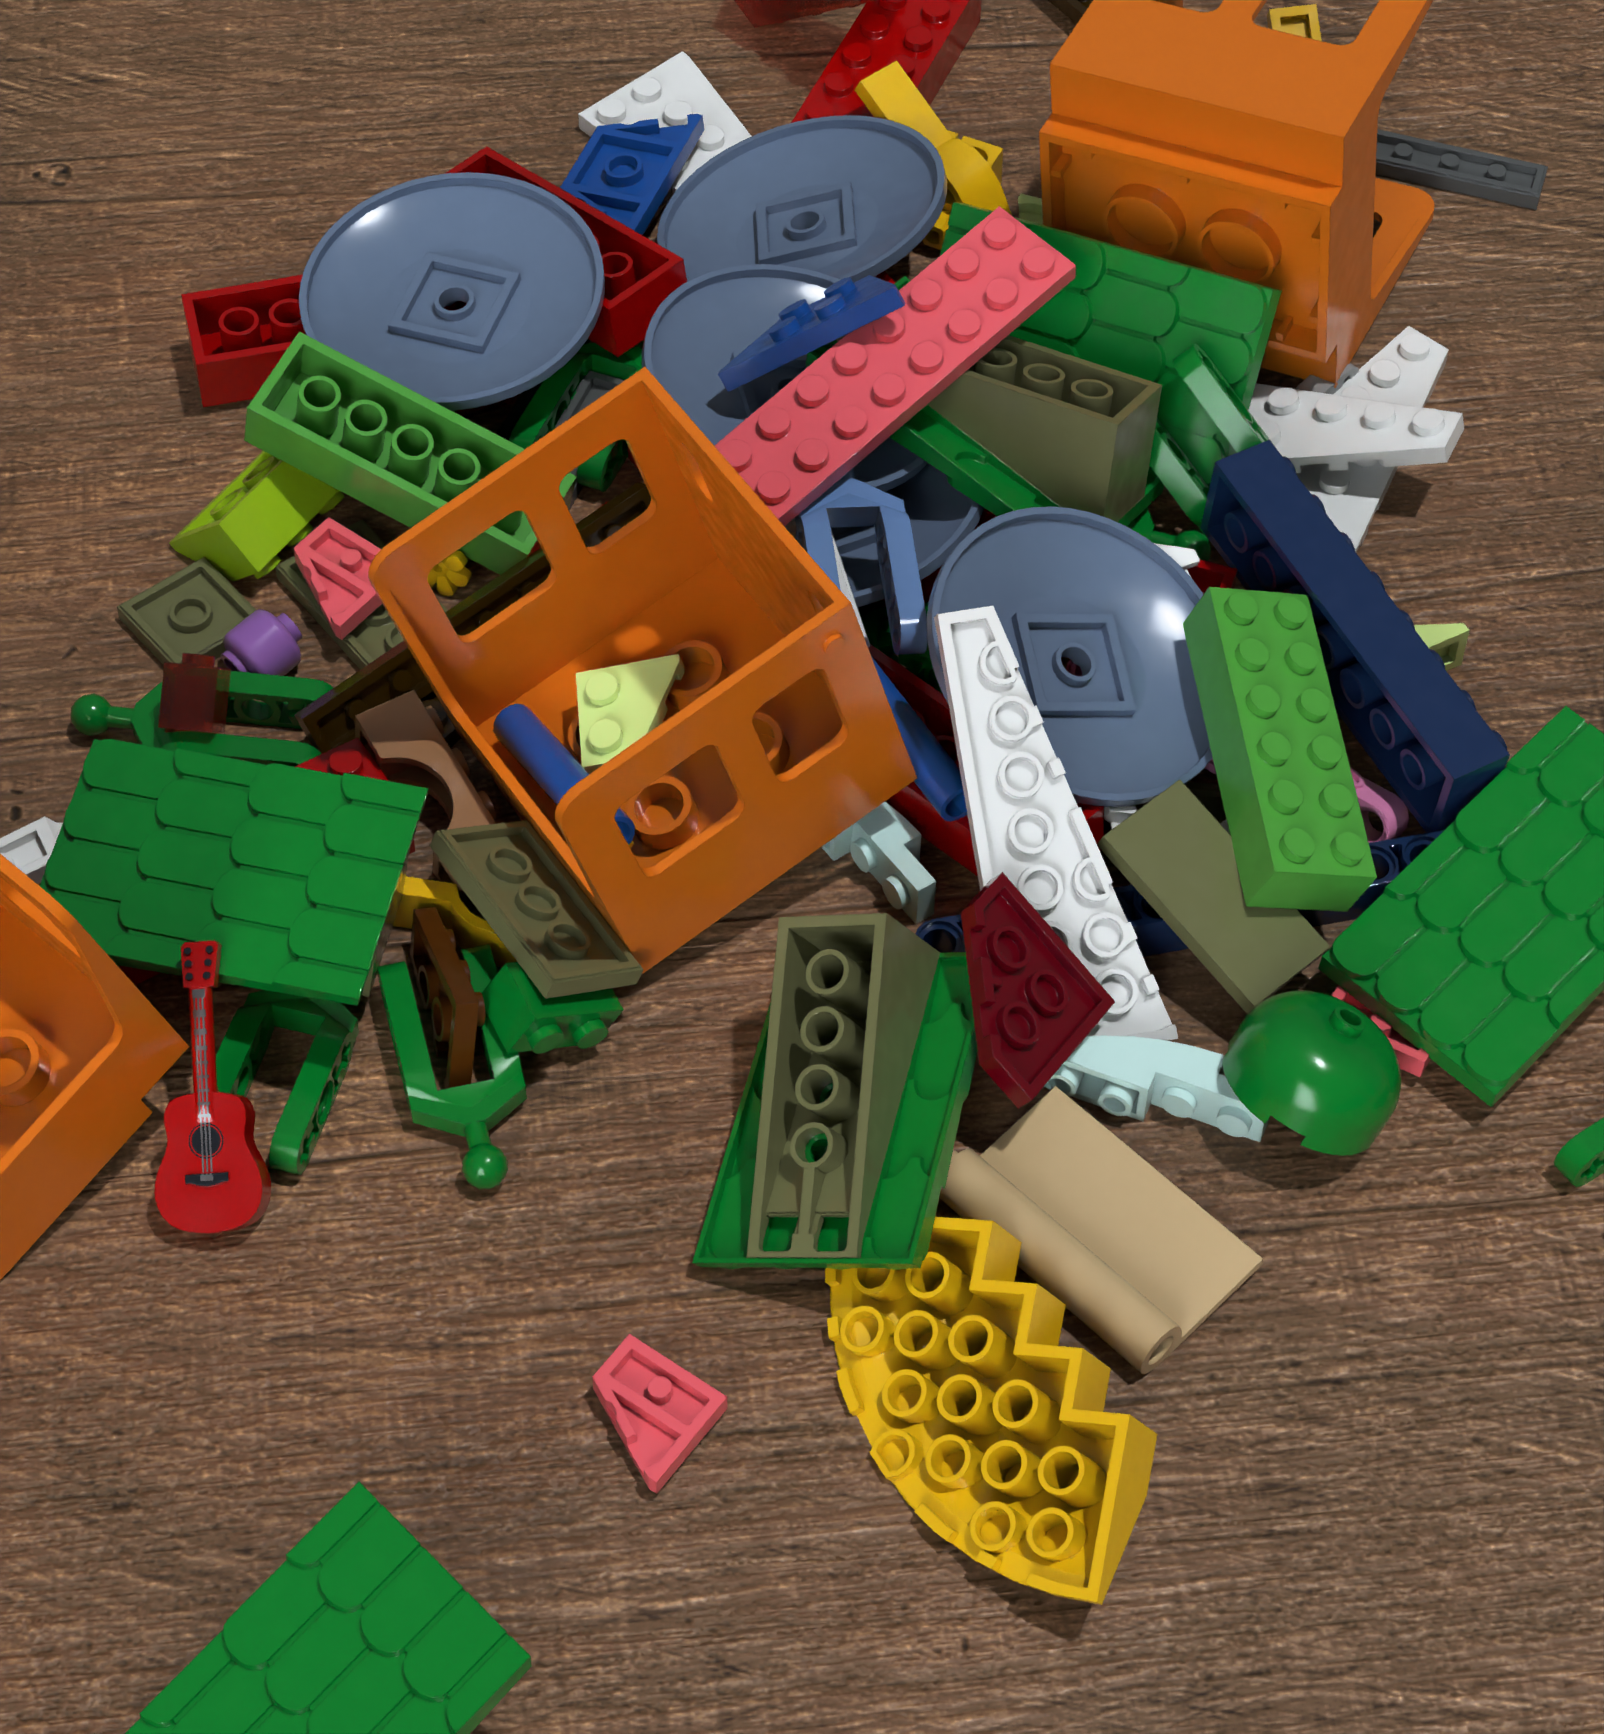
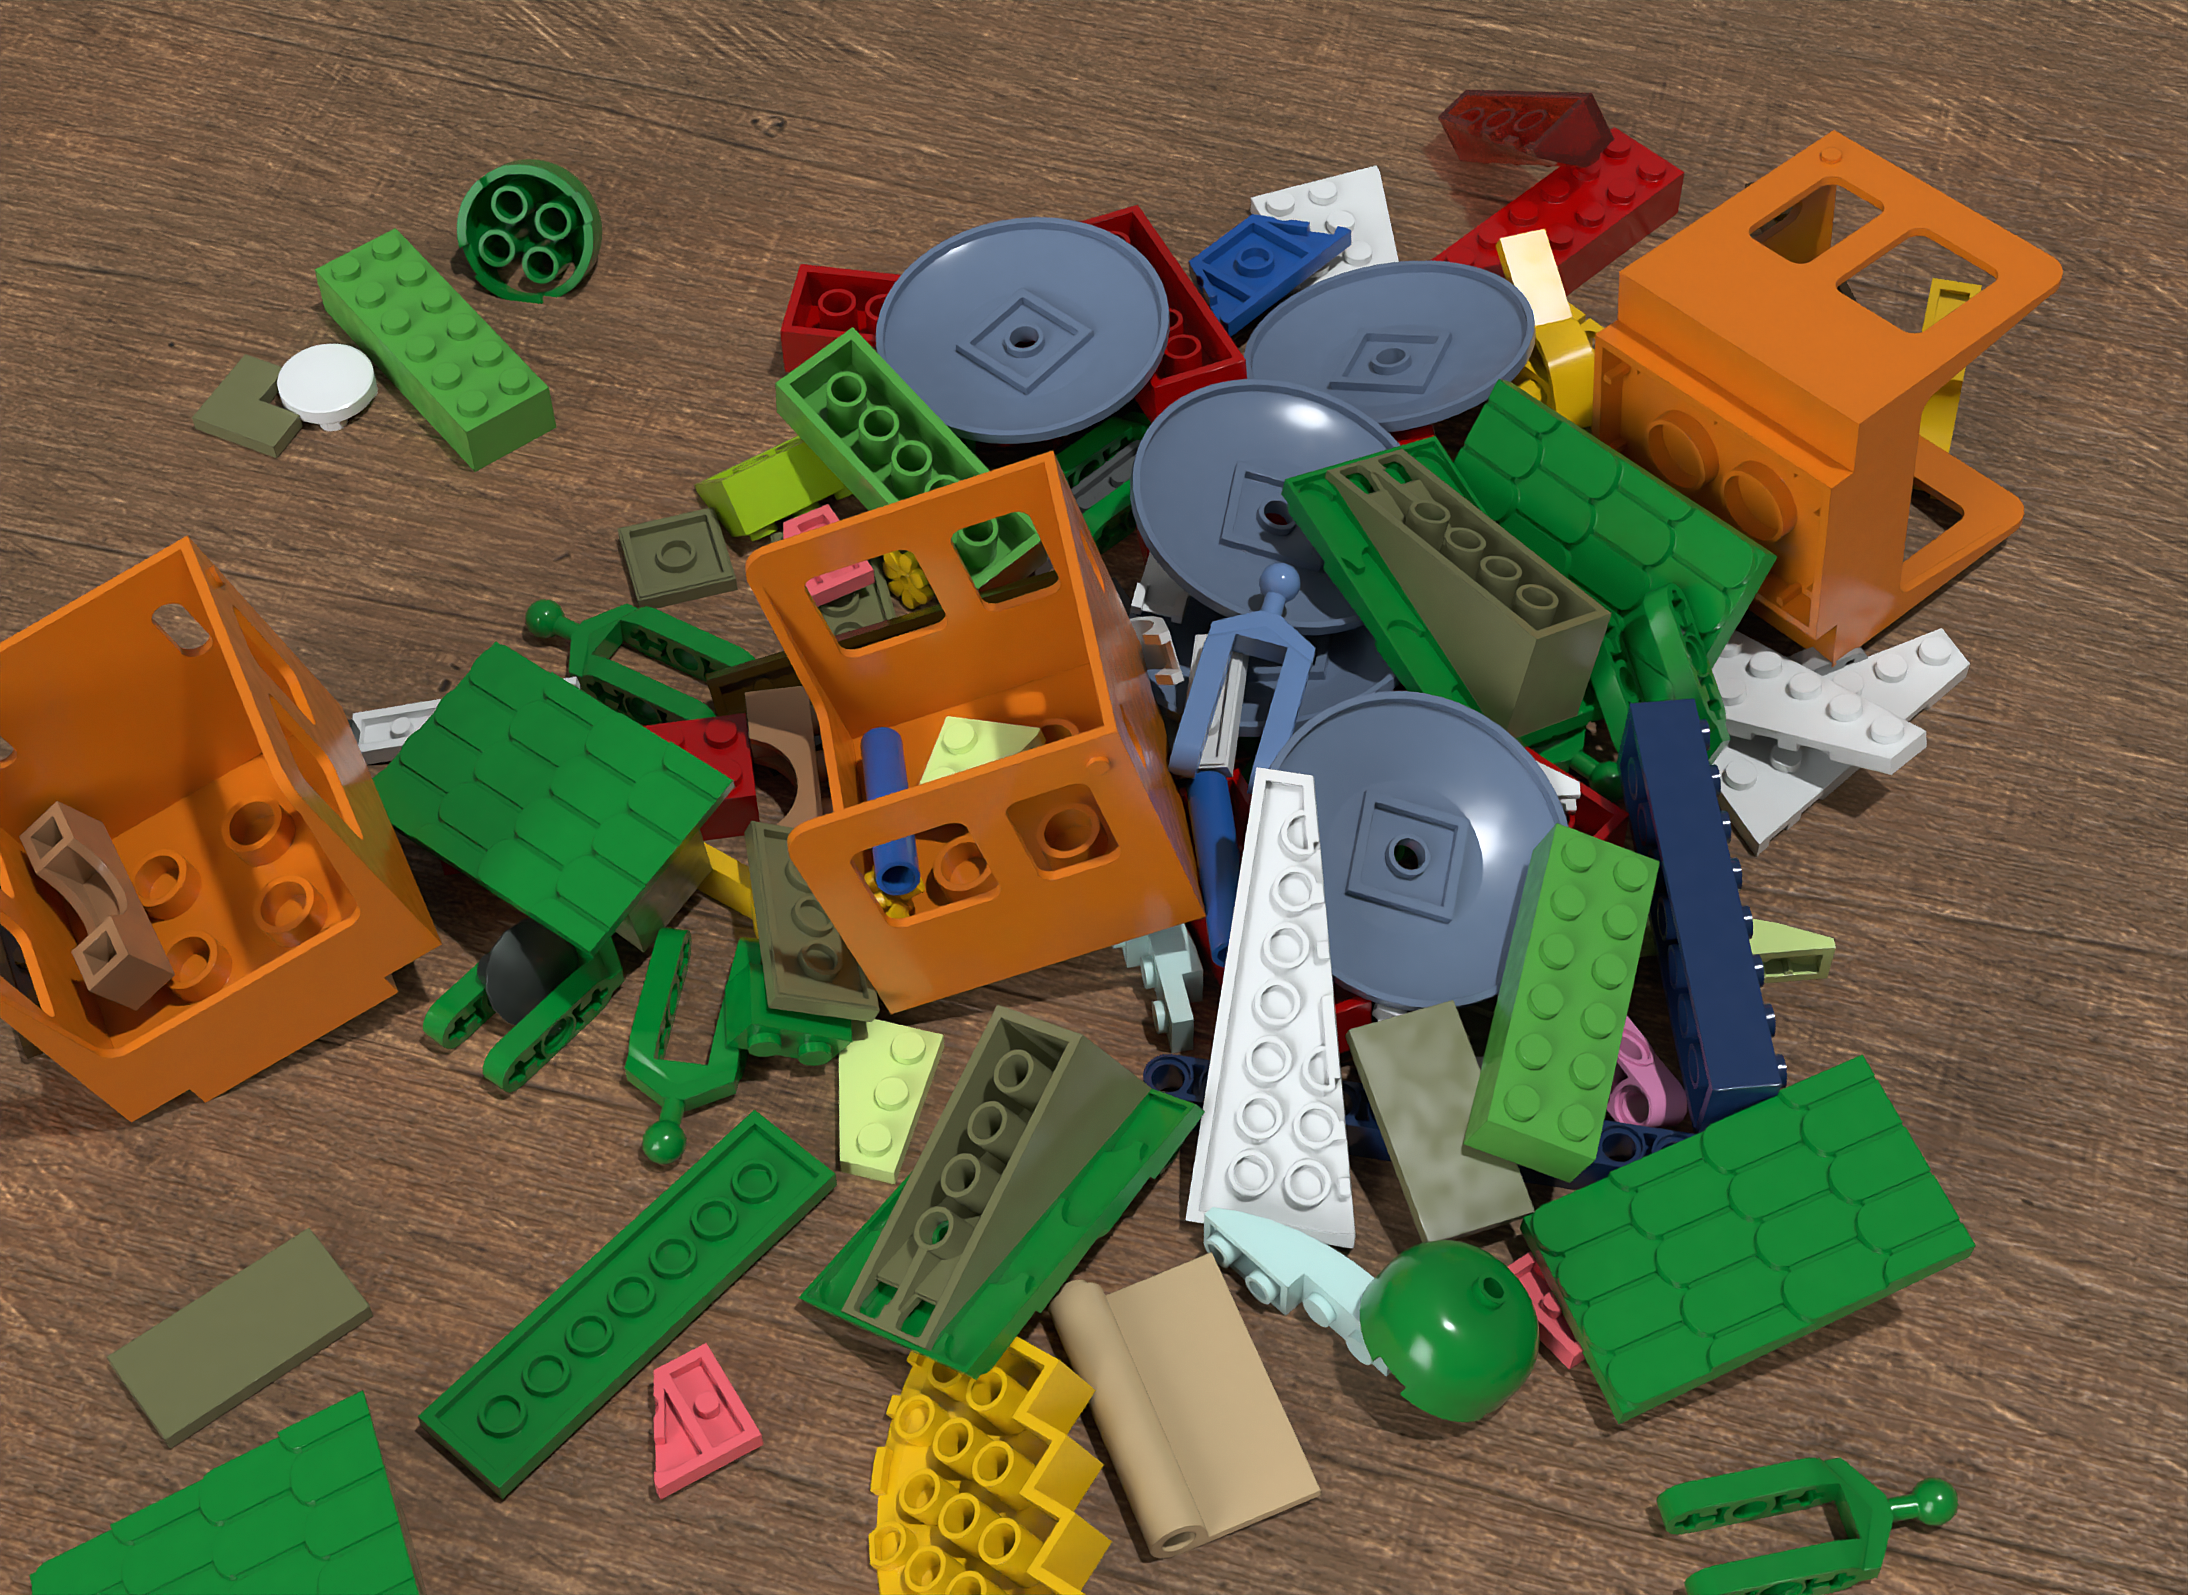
camera: 25 degrees right, 0 degrees up
(154, 1498) = (239, 1337): none -> olive tile
(194, 695) = (626, 629): clear red brick -> none
(211, 1164) = (427, 1058): red piece -> none
(263, 644) = (718, 604): medium lavender head -> none
(267, 1049) = (525, 968): none -> pearl dark grey dish
(448, 991) = (711, 962): reddish brown wing -> none
(528, 1329) = (626, 1303): none -> green plate
(669, 1053) = (882, 1095): none -> yellowish green wing
(808, 327) = (1299, 458): blue wing -> none
(894, 364) = (1350, 519): coral plate -> none
(1026, 991) = (1204, 1153): dark red plate -> none
(1459, 169) = (2068, 484): dark grey tile -> none

